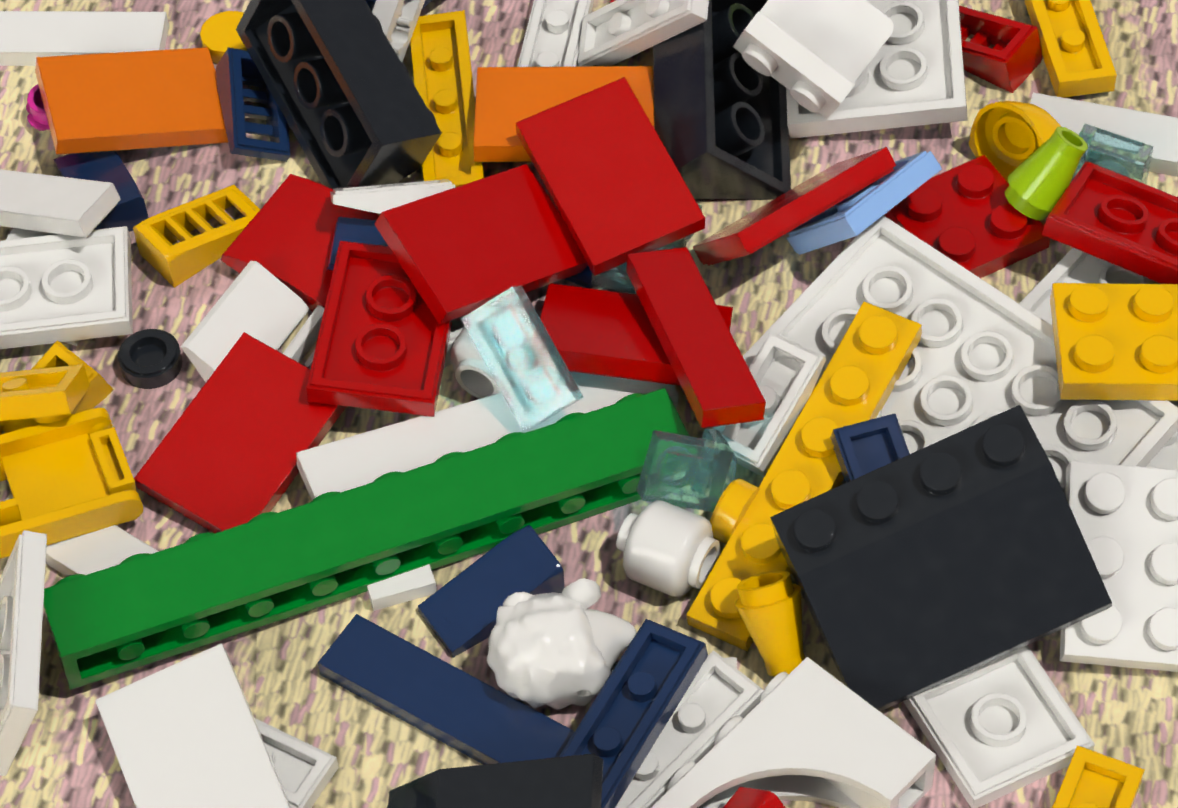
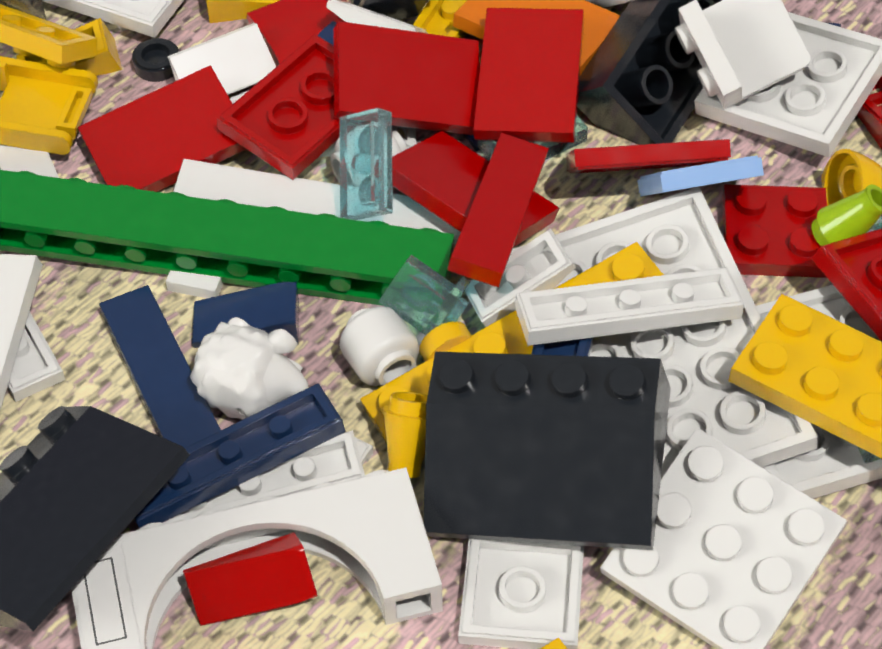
camera: 30 degrees right, 0 degrees up
(912, 373) = (628, 306): none -> white tile

